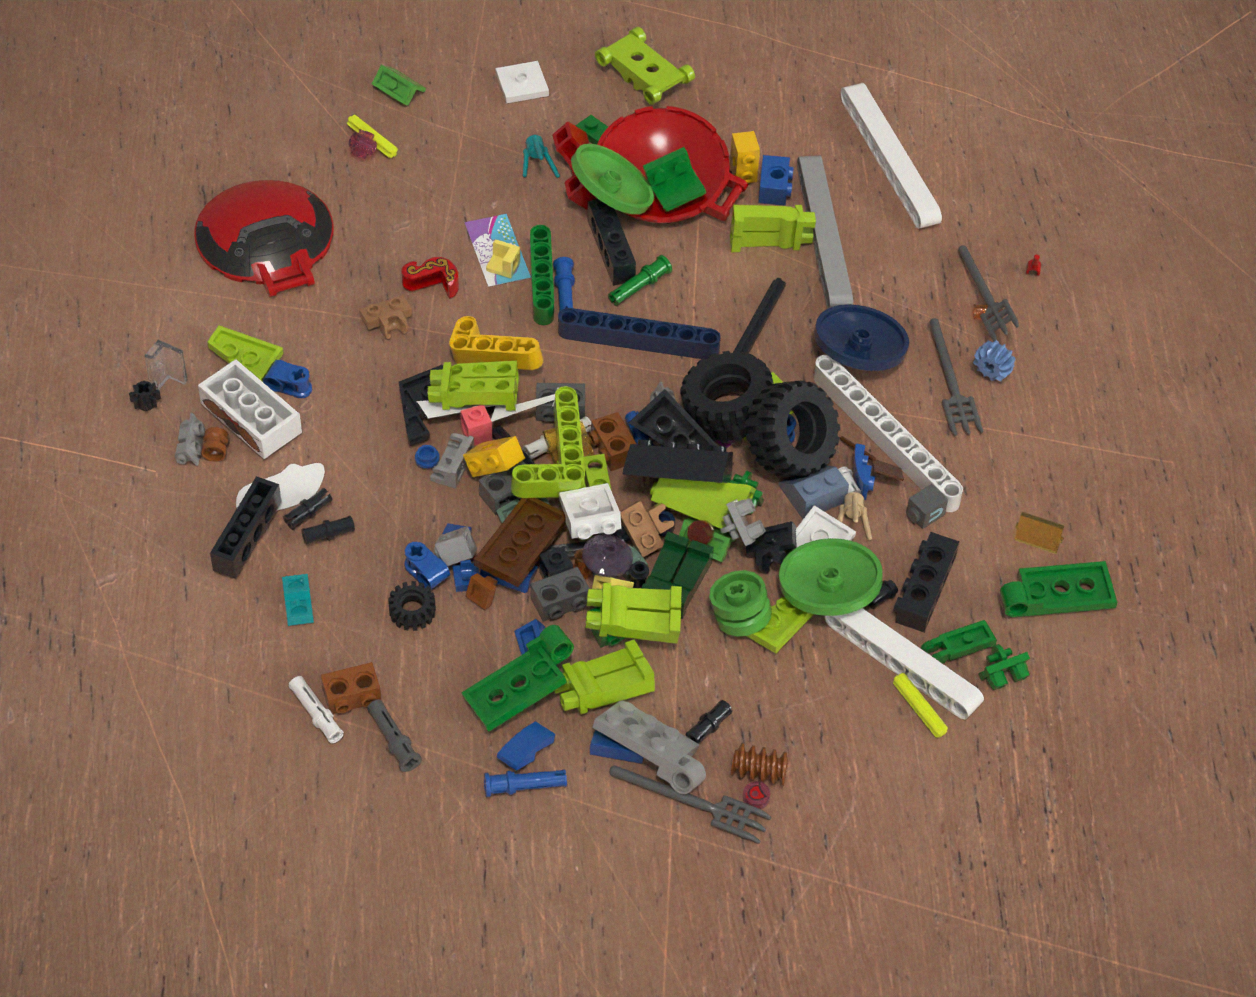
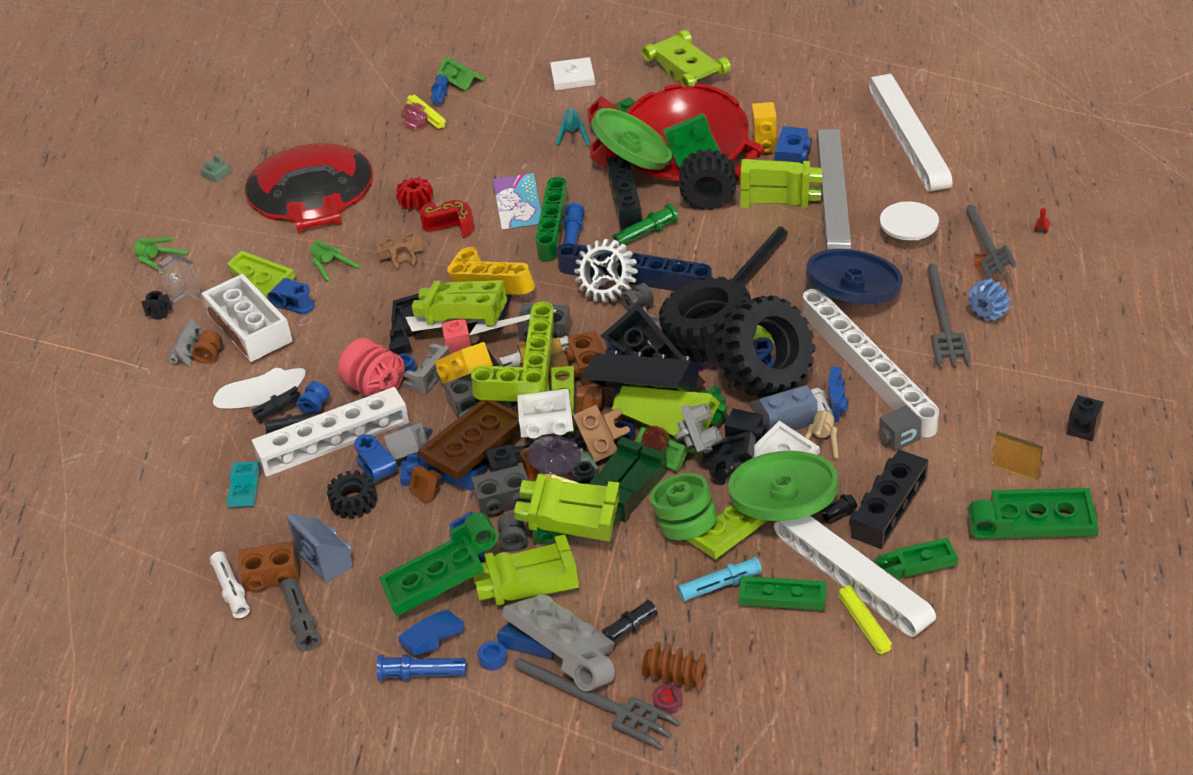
camera: 15 degrees right, 10 degrees down
(113, 325) = (146, 249): none -> bright green plant
(155, 219) = (215, 170): none -> sand green tile
(245, 527) = (209, 416): black brick -> none
(308, 325) = (324, 253): none -> bright green plant
(344, 501) = (312, 401): none -> blue wheel
(372, 537) = (330, 431): none -> white brick
(380, 106) = (439, 89): none -> blue axle
(387, 246) = (414, 193): none -> red gear
(398, 666) = (320, 547): none -> sand blue slope
(400, 467) = (370, 367): none -> coral wheel
(504, 259) = (521, 205): light yellow panel -> none
(580, 637) = (512, 533): none -> dark grey wheel
(586, 764) = (492, 655): none -> blue tile
(624, 348) = (611, 264): none -> white gear
(624, 490) = (589, 396): none -> dark orange piece
(648, 369) = (641, 295): none -> dark grey wheel
(698, 226) = (707, 165): none -> black tyre
(780, 511) = (744, 421): none -> black brick
(793, 669) = (729, 575): none -> medium azure pin
(843, 684) = (782, 593): none -> green plate
(879, 466) = (856, 390): reddish brown piece -> none
(906, 268) = (909, 220): none -> white piece
(995, 672) = (961, 581): green hips -> none
(1095, 487) = (1085, 418): none -> black brick

